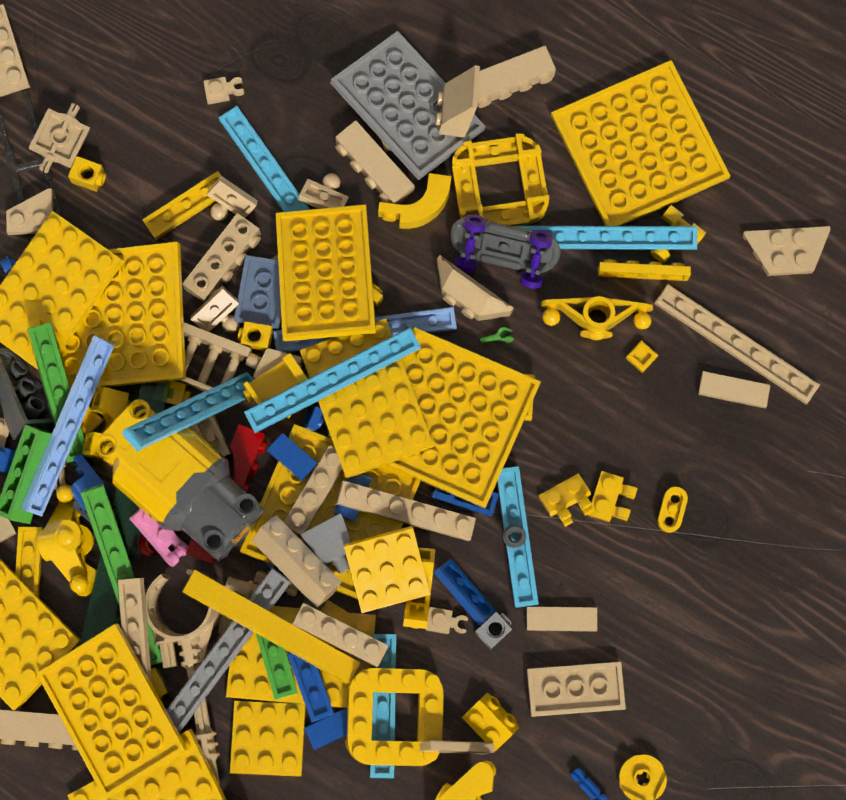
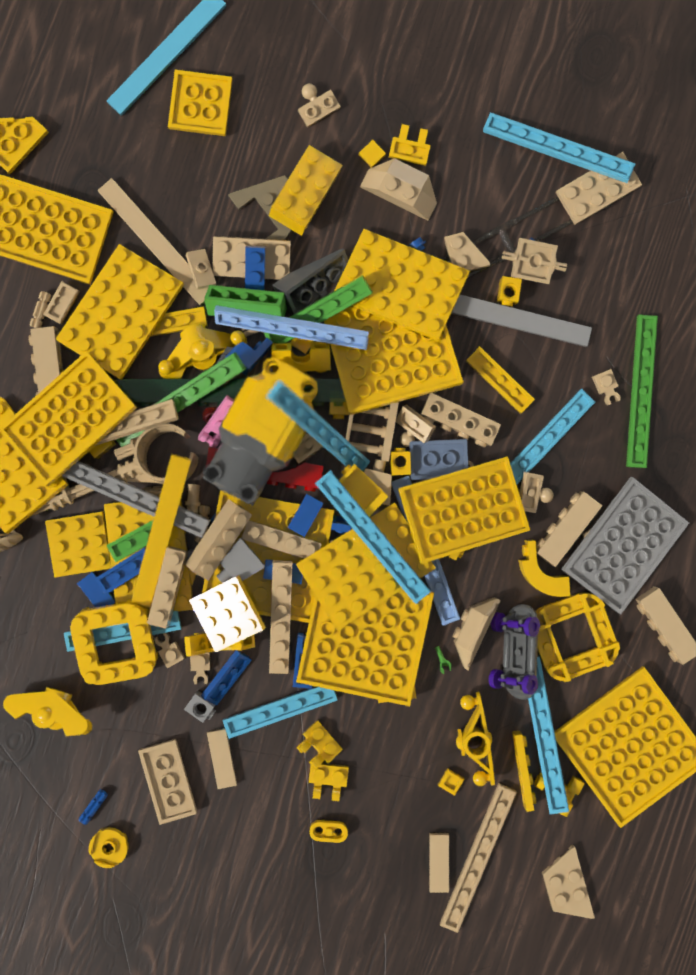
camera: 85 degrees right, 10 degrees up
(124, 166) = (522, 320): none -> light grey tile
(229, 198) = (512, 415): tan plate -> none
(237, 52) = (641, 391): none -> bright green tile
(422, 654) = (170, 652): none -> tan plate
(458, 103) = (634, 591): tan slope -> none
(460, 747) = (99, 698): tan tile -> none
(491, 721) = (128, 719): yellow bracket -> none
(514, 529) = (278, 715): dark grey plate -> none

